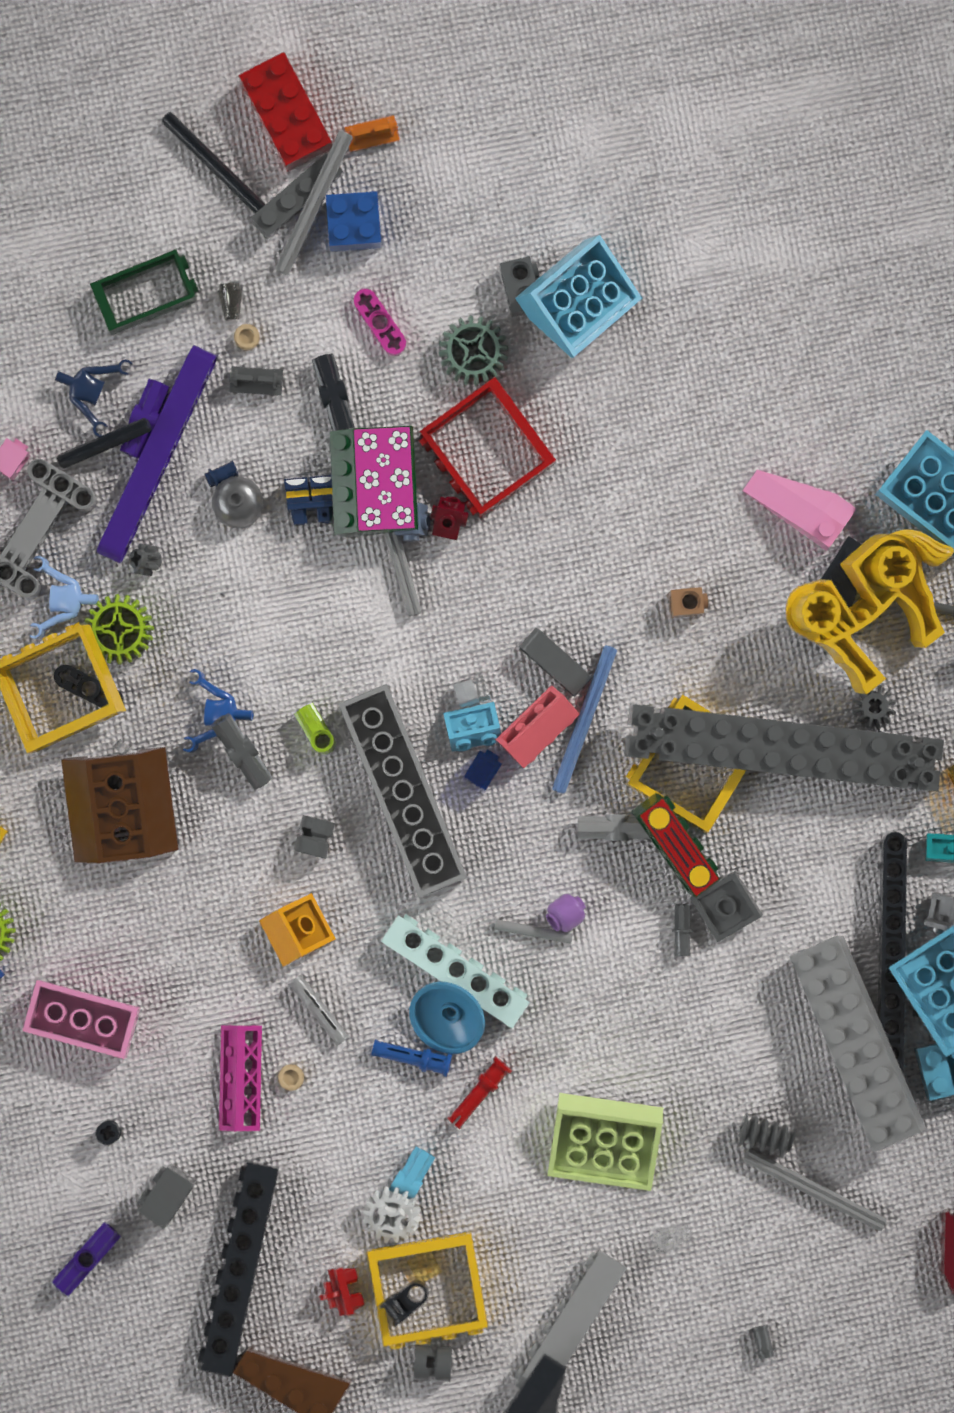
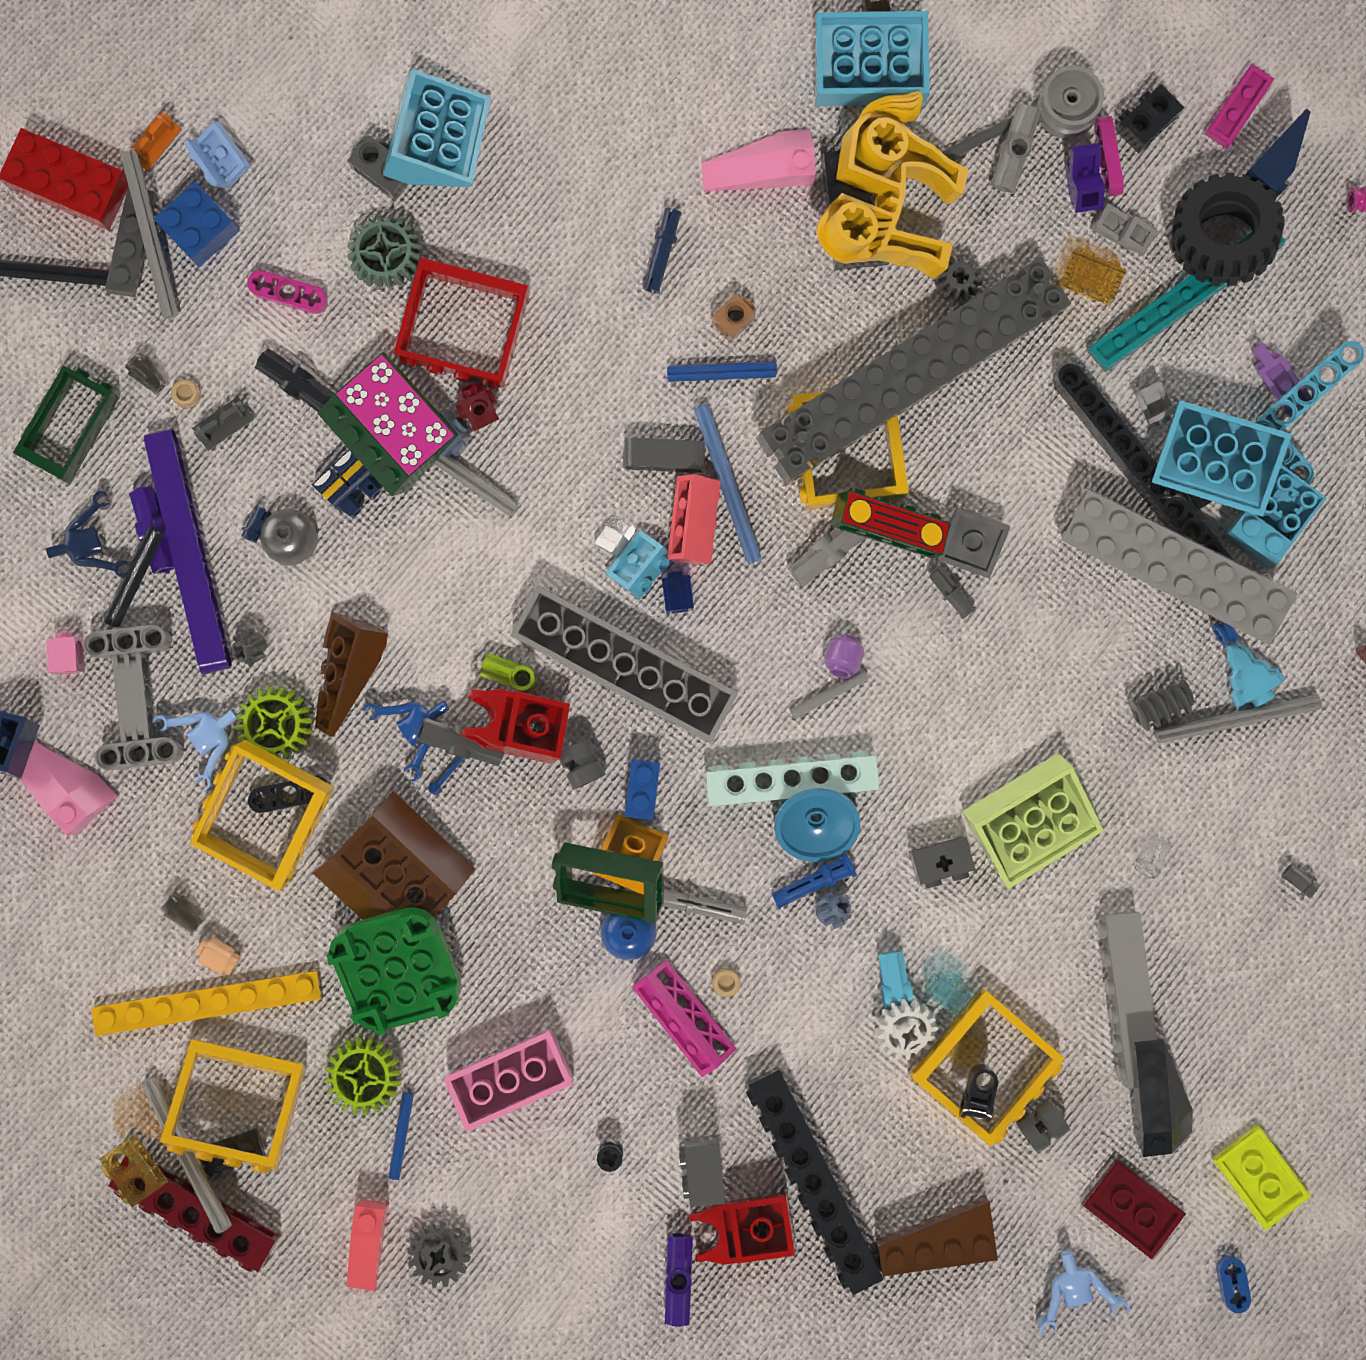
camera: 35 degrees left, 0 degrees up
(64, 875) = (395, 969): none -> green tile
(155, 1260) = (737, 1230): none -> red brick
(196, 768) = (435, 788): none -> blue hinge
(211, 627) = (351, 660): none -> reddish brown wedge
(250, 984) = (627, 937): none -> blue cylinder
(253, 947) = (607, 899): none -> dark green window
(286, 767) = (510, 723): none -> red brick
(337, 1291) = (914, 1132): red hips -> none
(343, 891) = (642, 789): none -> blue brick
(409, 183) = (217, 156): none -> light blue bracket
(409, 1087) = (833, 910): none -> sand blue gear
(444, 1212) = (948, 991): none -> clear light blue brick
(487, 1083) = (895, 851): red pin -> none
(505, 1105) = (954, 850): none -> dark grey brick
(647, 634) = (721, 371): none -> blue axle
(675, 511) = (662, 249): none -> dark blue pin
(848, 1167) = (1250, 677): none -> medium azure rock
(853, 1121) = (1224, 633): none -> blue bush

